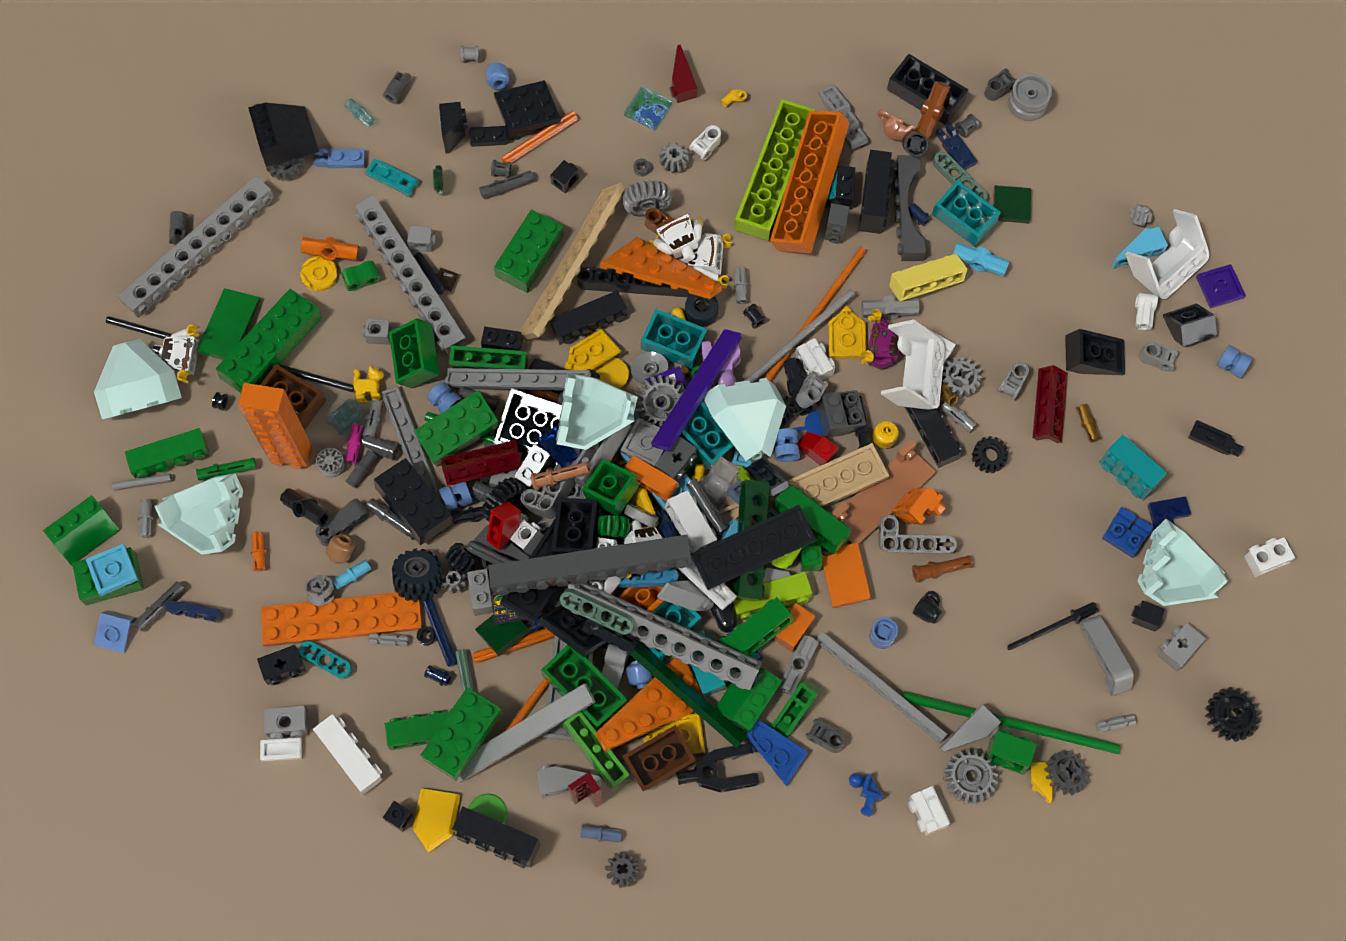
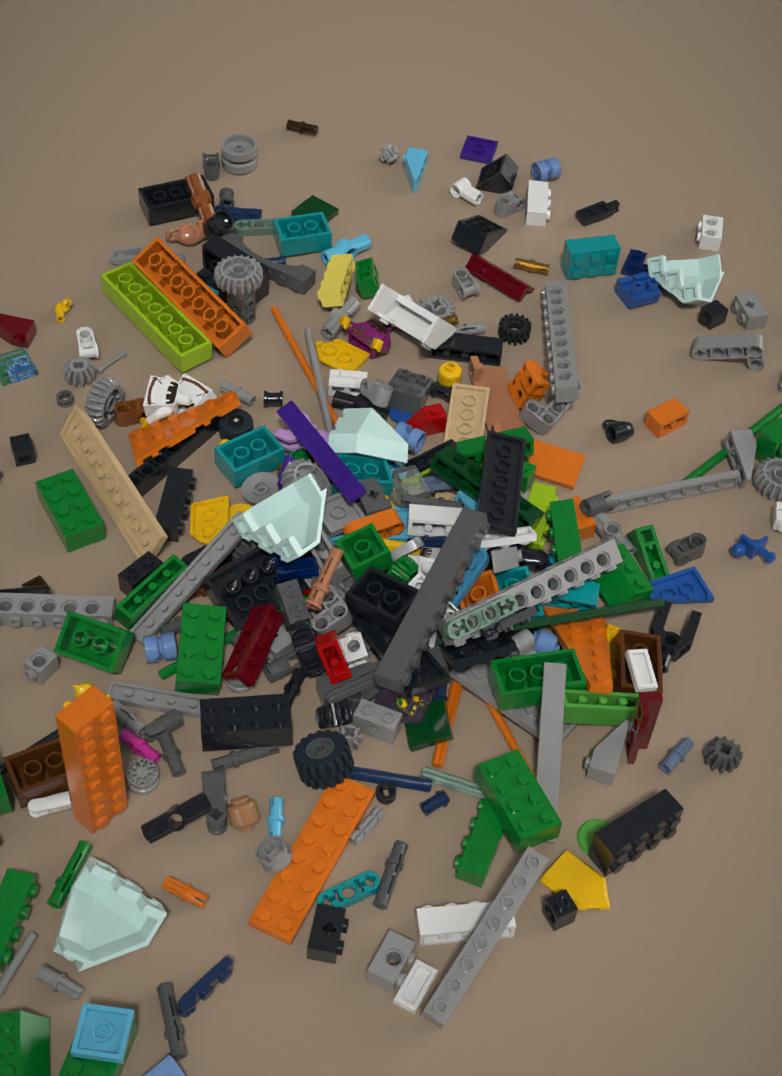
camera: 60 degrees left, 20 degrees down
(333, 774) = (484, 938): none -> light grey brick
(366, 677) = (394, 865): none -> dark grey pin
(450, 501) = (267, 683): medium blue wheel -> none
(647, 763) = (641, 670): none -> white tile
(721, 173) = (122, 354): none -> light grey hinge
(809, 635) = (596, 504): none -> dark grey hinge
(848, 212) = (238, 275): none -> light grey gear
(883, 633) = (622, 464): medium blue wheel -> none
(934, 569) = (587, 410): dark orange pin -> none
(952, 298) = (367, 277): none -> green brick
(975, 641) = (666, 417): none -> orange brick
(1020, 492) = (560, 342): none -> light grey brick
(1076, 615) = (684, 353): black piece -> none
(1117, 121) = (302, 127): none -> dark brown axle
(1178, 262) = (442, 160): white windscreen -> none
(1180, 380) = (538, 203): none -> white brick

